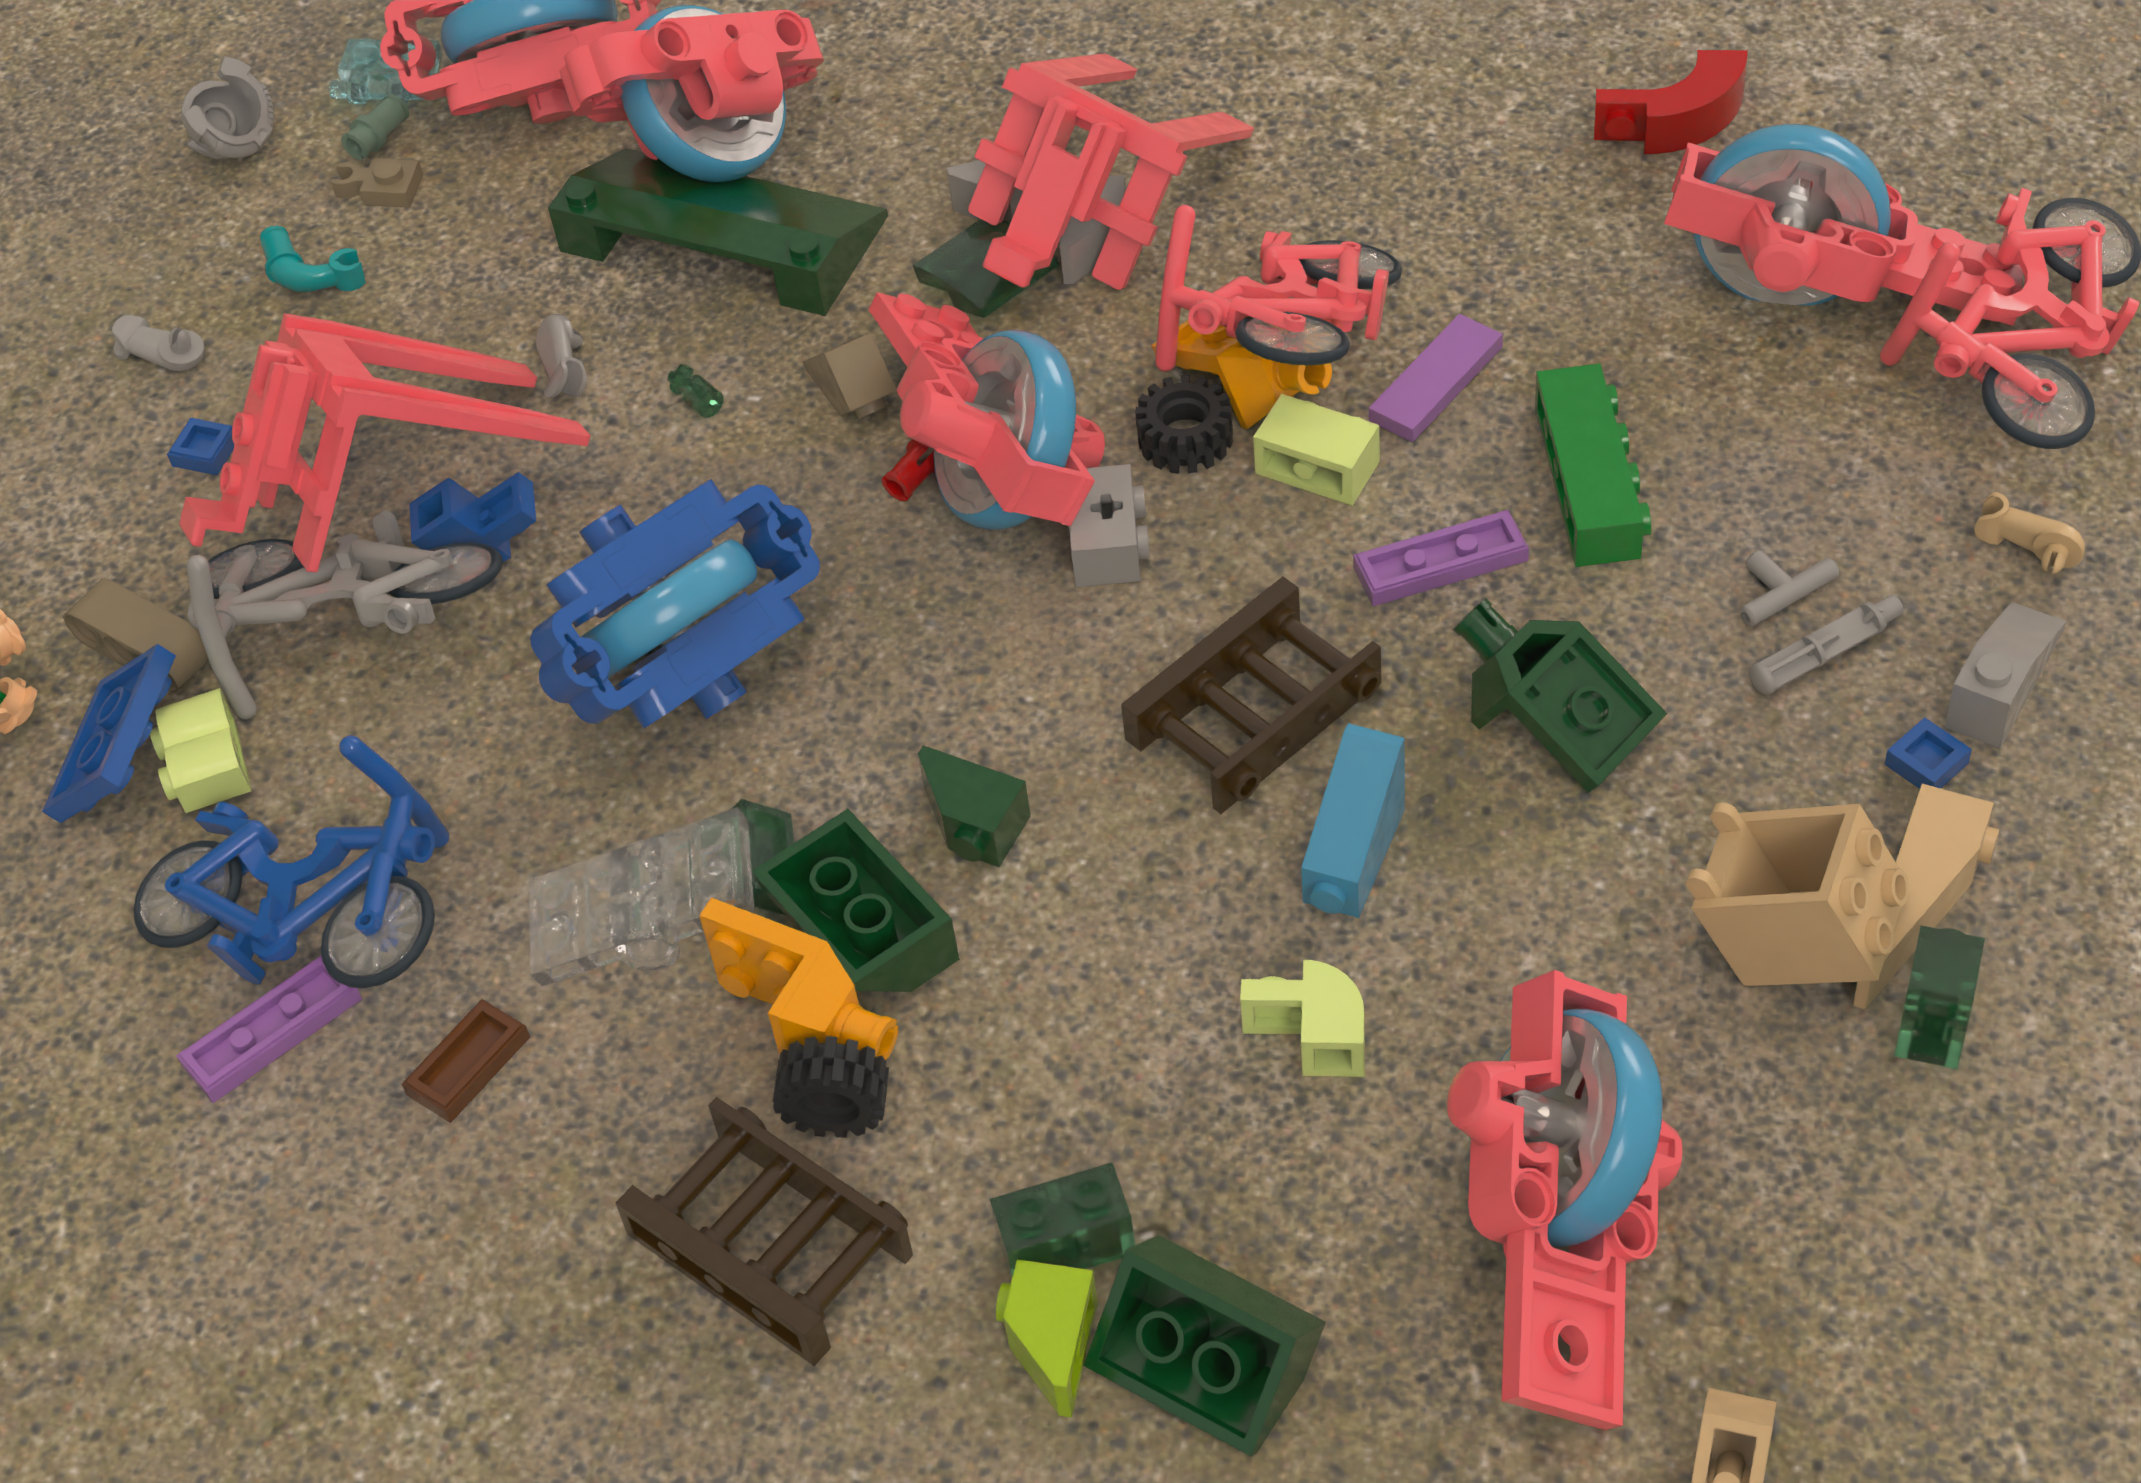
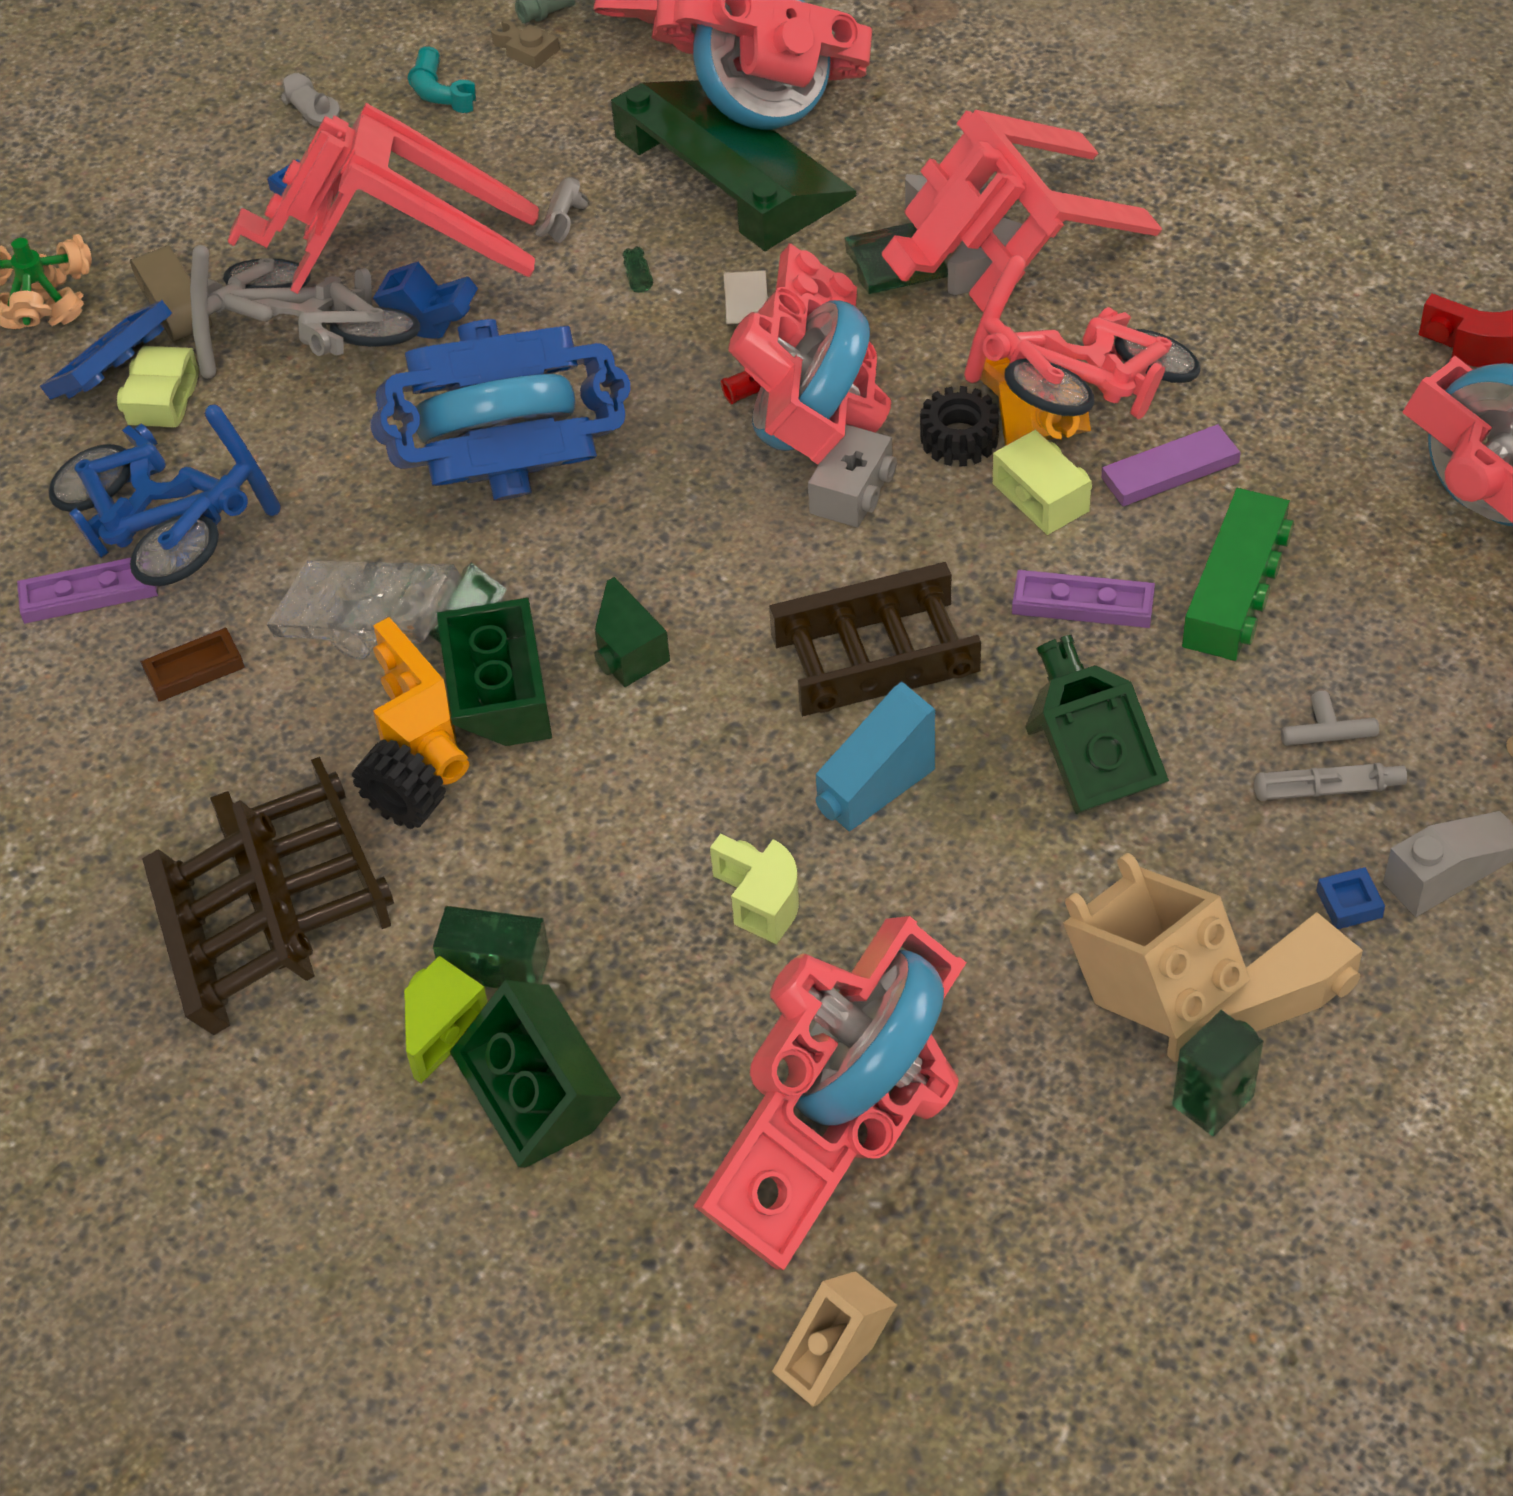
camera: 25 degrees right, 0 degrees up
(675, 1356) = (183, 917): none -> dark brown fence

